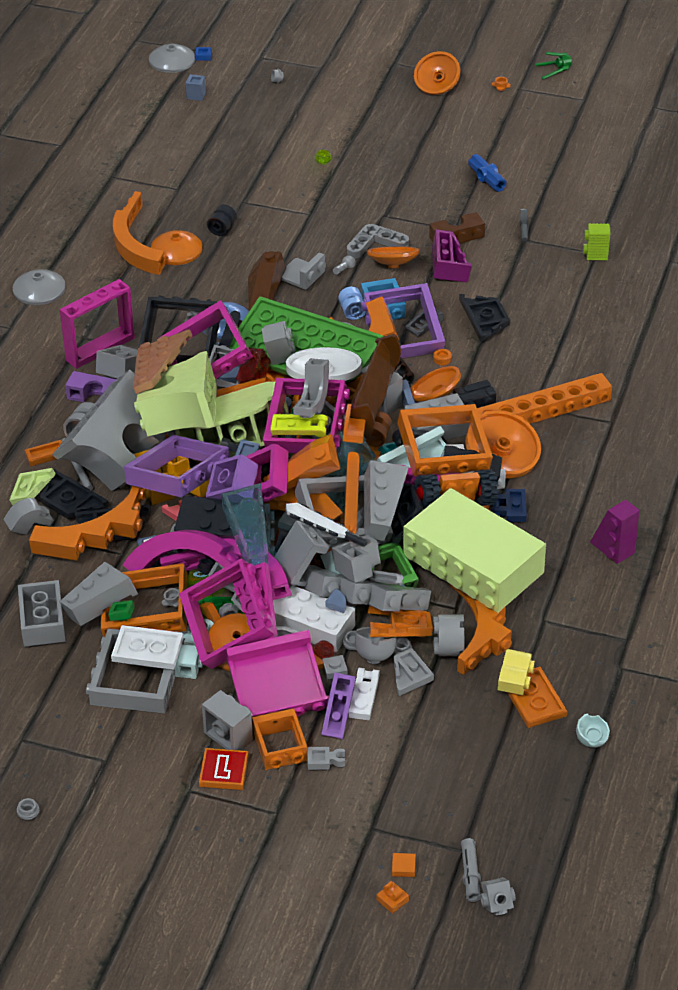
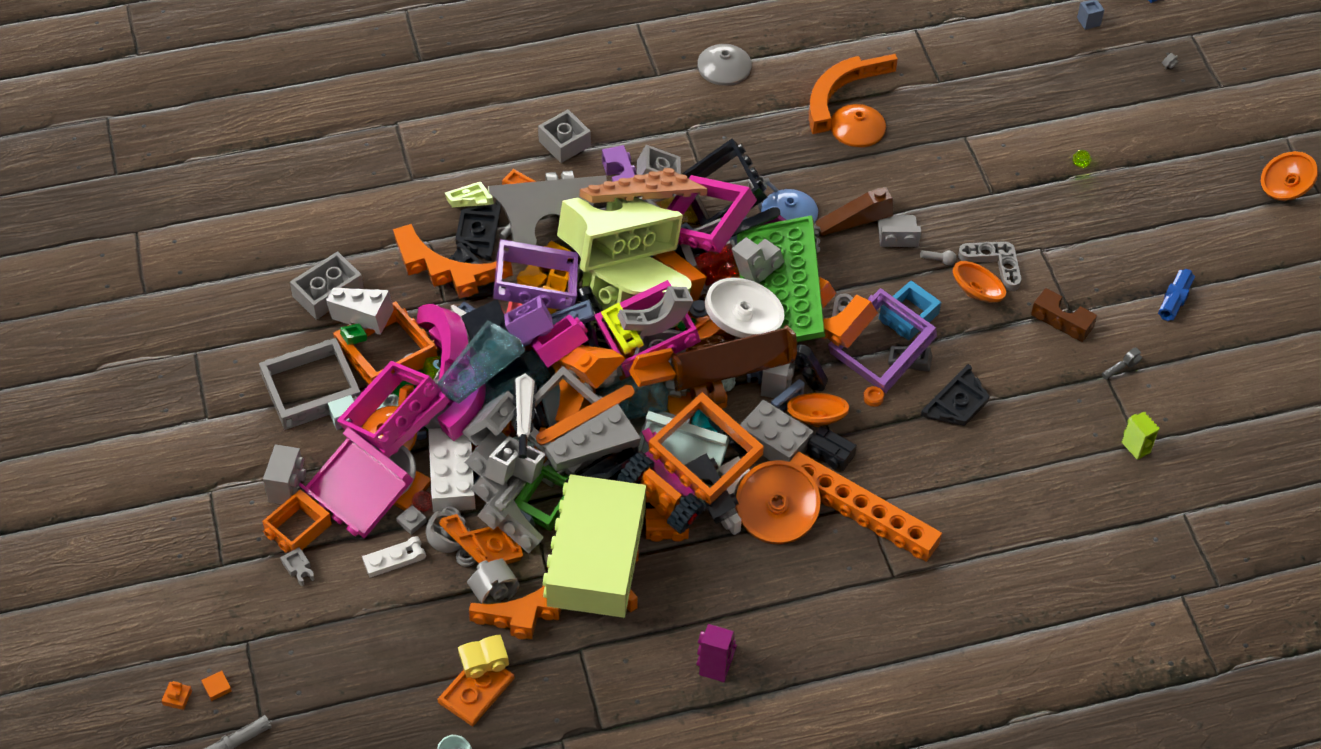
camera: 55 degrees right, 10 degrees up
(26, 401) = (564, 136): none -> light grey brick
(26, 513) = (432, 211): light grey brick -> none
(31, 806) = (121, 392): light grey plate -> none
(115, 337) = (677, 144): dark pink window -> none
(147, 647) = (325, 374): white plate -> none
(221, 220) = (913, 135): black wheel -> none
(223, 769) = (245, 502): red tile -> none
(336, 601) = (466, 476): sand blue tile -> none
(338, 706) = (365, 541): medium lavender slope -> none
(350, 300) = (887, 282): light blue wheel -> none
(410, 671) = (439, 577): light grey wing -> none
(448, 259) = (1010, 326): magenta wedge -> none
(515, 505) = (709, 553): dark blue plate -> none

